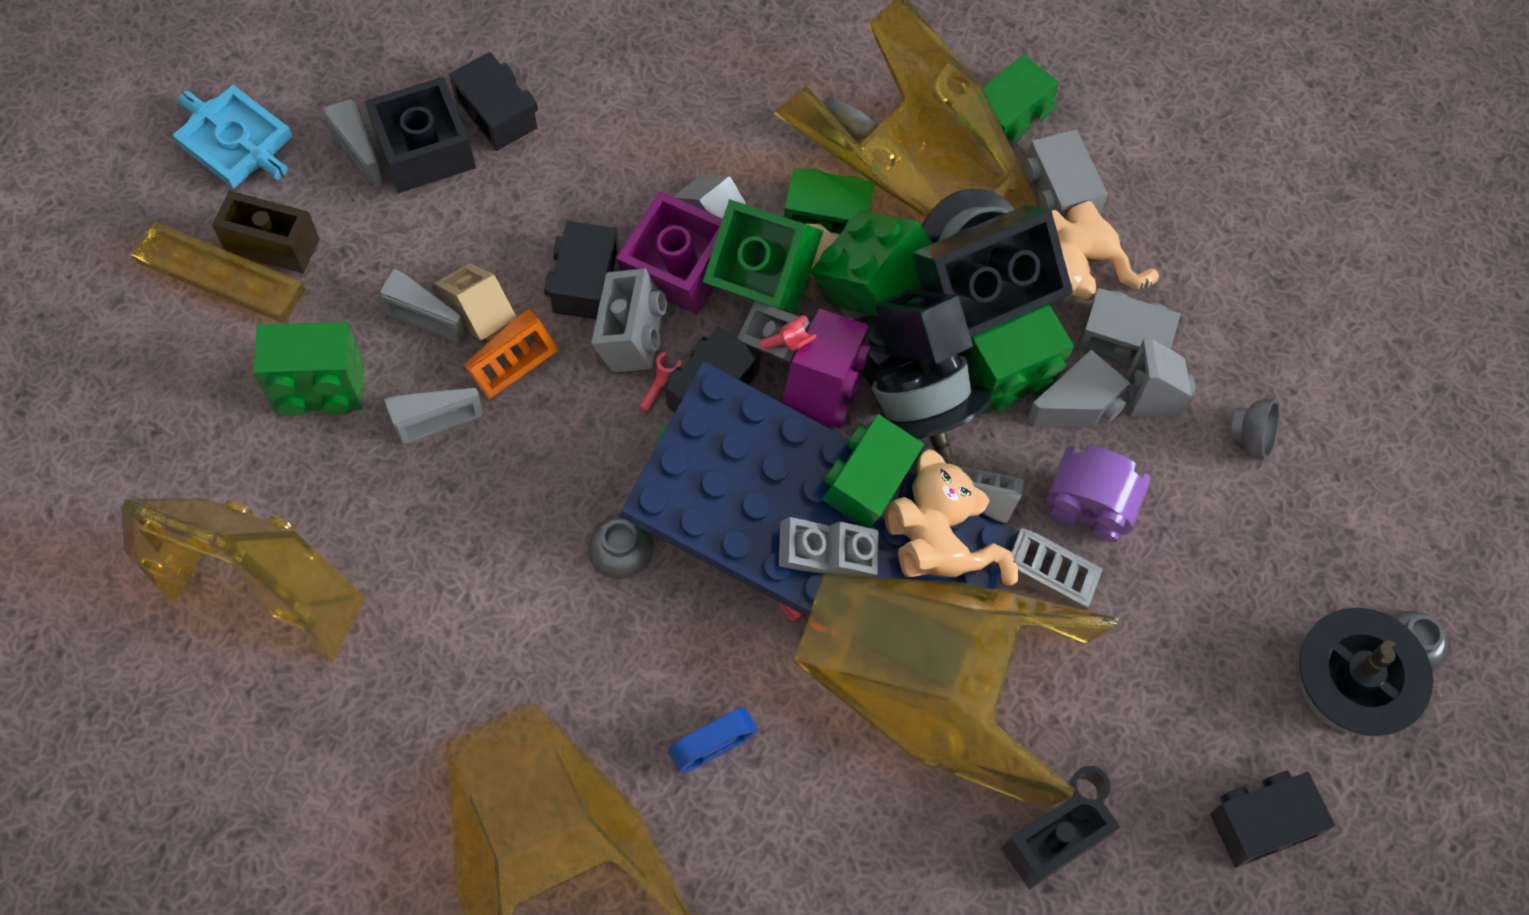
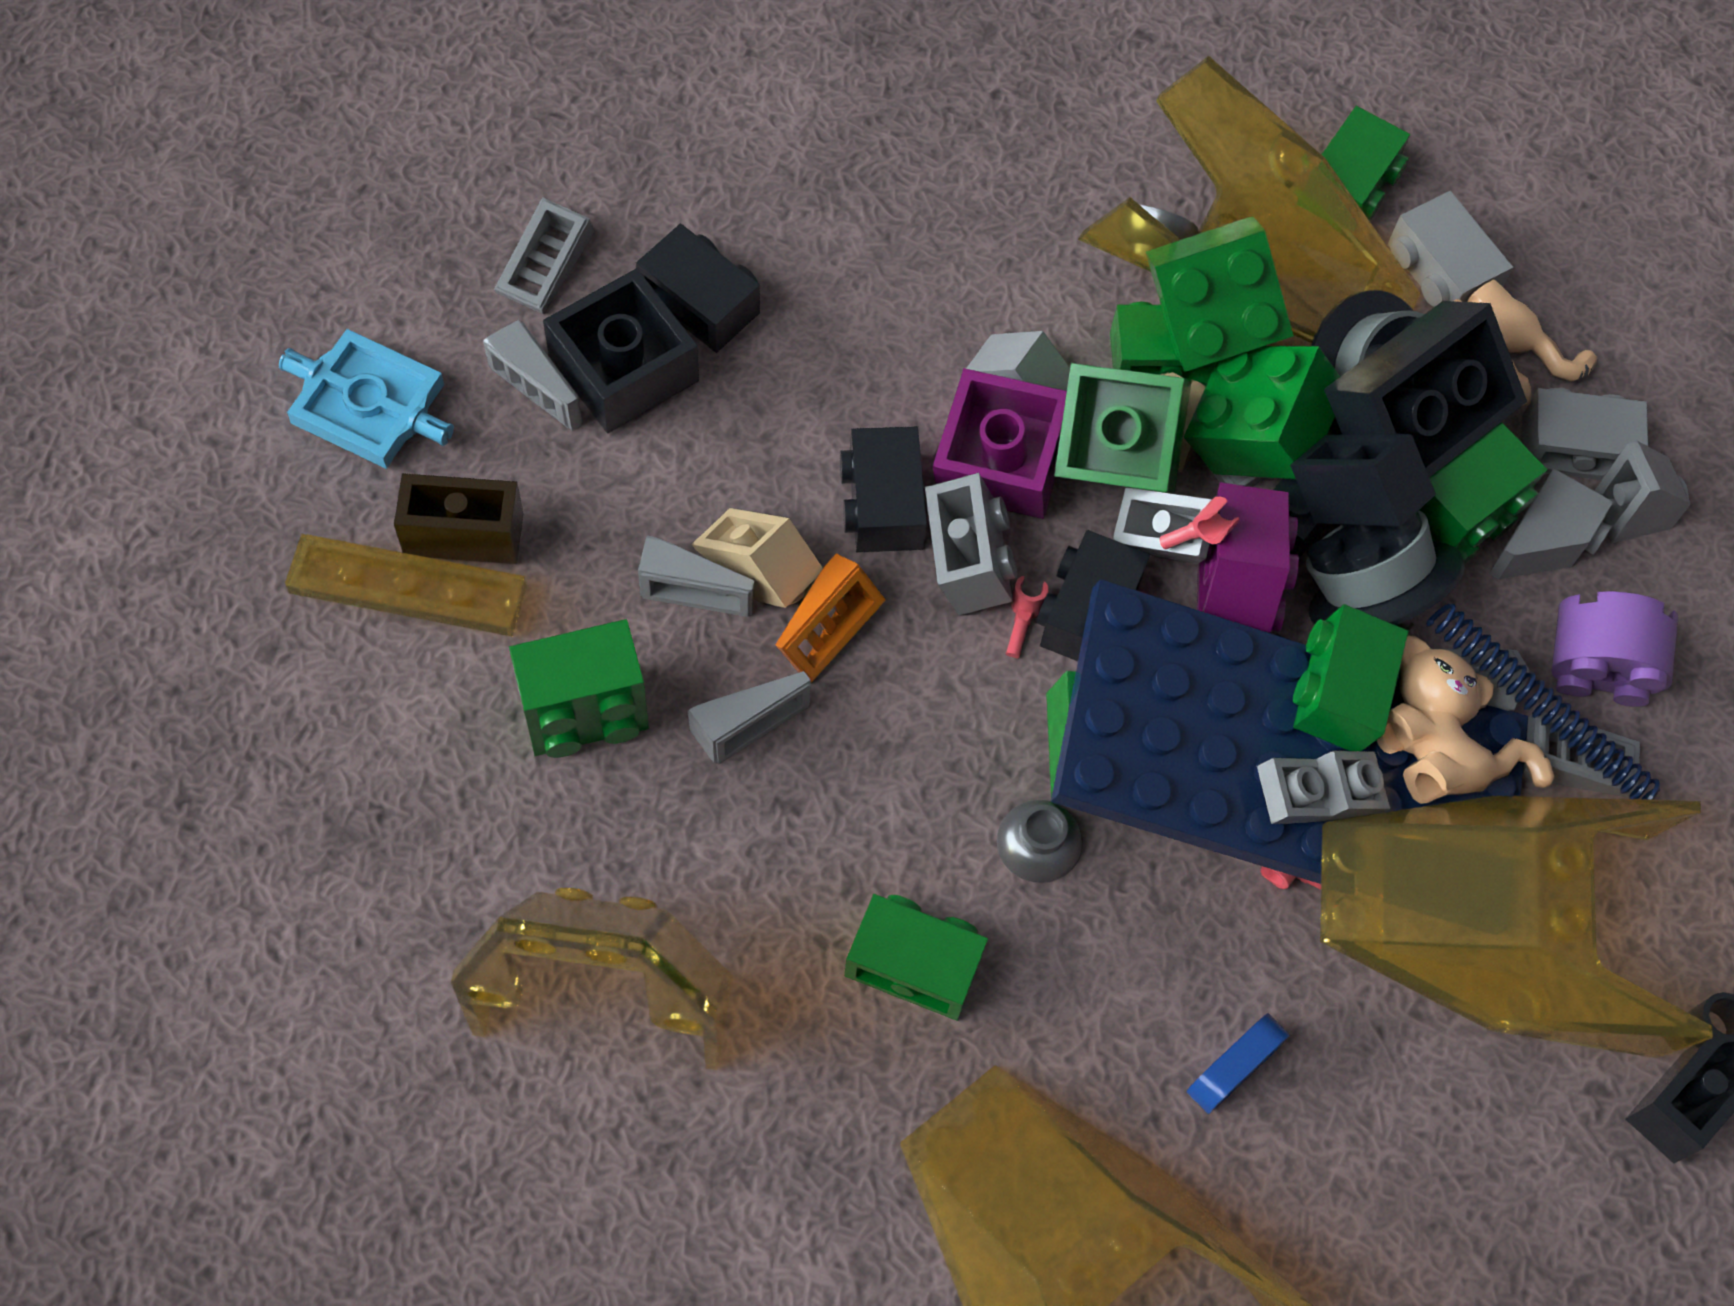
camera: 15 degrees left, 0 degrees up
(391, 41) = (546, 216): none -> light grey slope
(497, 609) = (916, 955): none -> green brick
(857, 169) = (1220, 293): none -> green brick
(1025, 521) = (1557, 725): none -> dark blue piece

